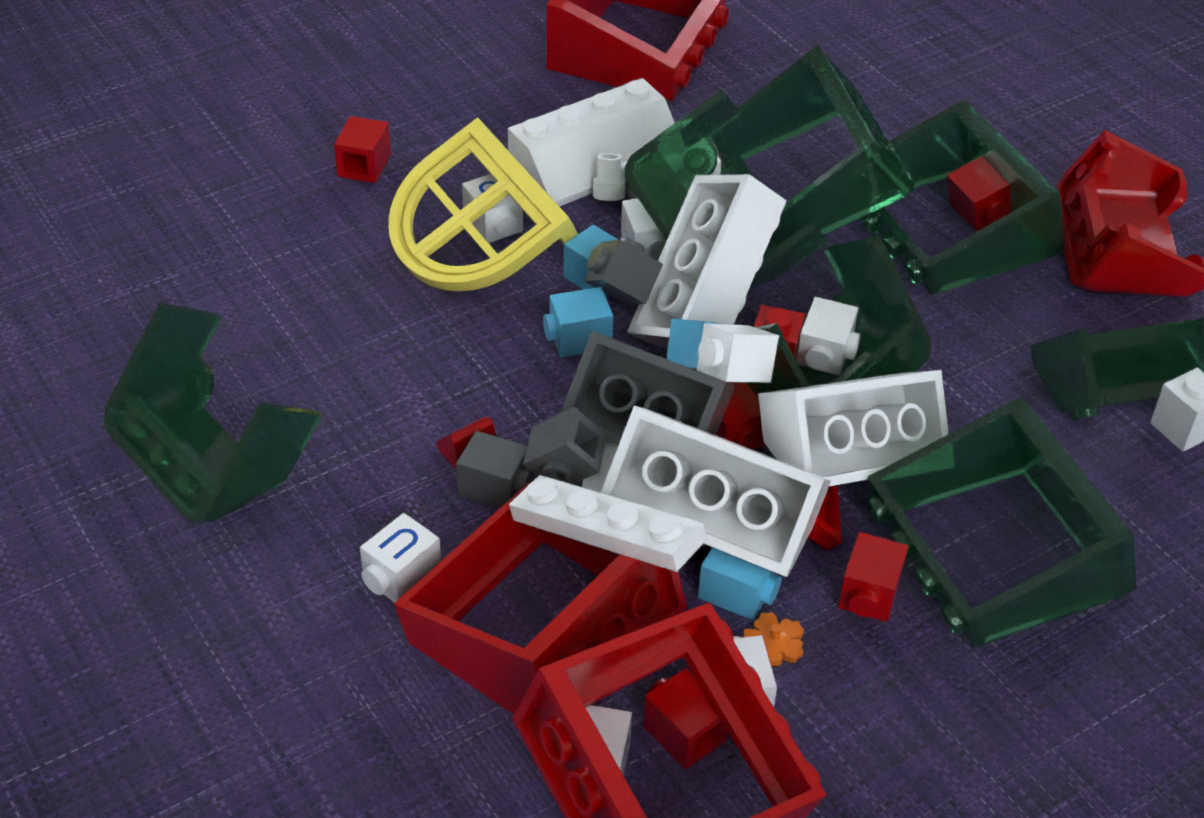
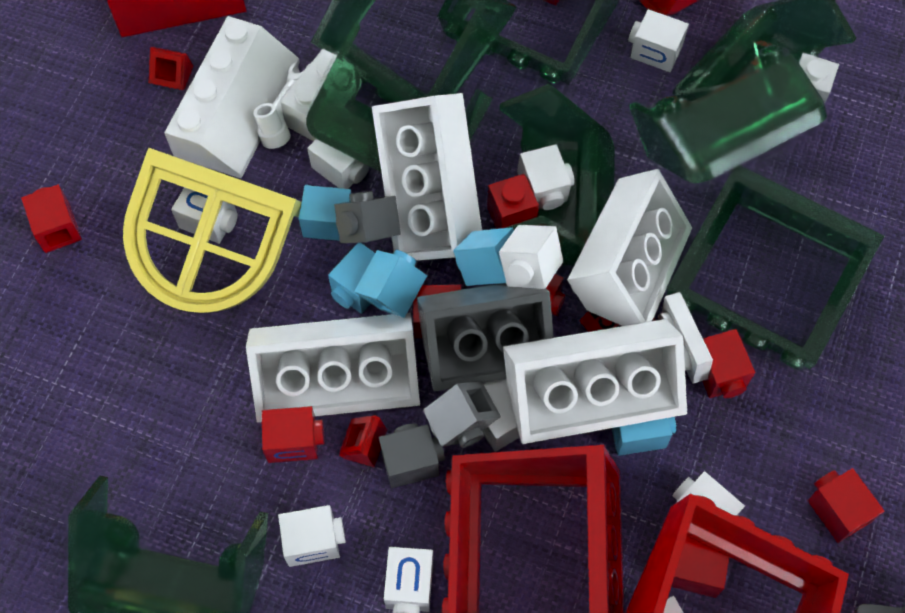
camera: 35 degrees left, 20 degrees up
(348, 476) = (310, 535): none -> white brick
(405, 396) = (291, 434): none -> red brick
(483, 367) = (334, 365): none -> white slope
(560, 94) = (169, 68): none -> red slope
(602, 315) = (391, 282): none -> medium azure brick
(609, 522) = (556, 466): white plate -> none
(780, 640) = (692, 455): orange plant -> none
(850, 513) = (696, 354): none -> white plate
(894, 766) = (844, 503): none -> red brick
(1054, 298) = (657, 40): none -> white brick
(1061, 358) = (734, 121): none -> clear green windscreen

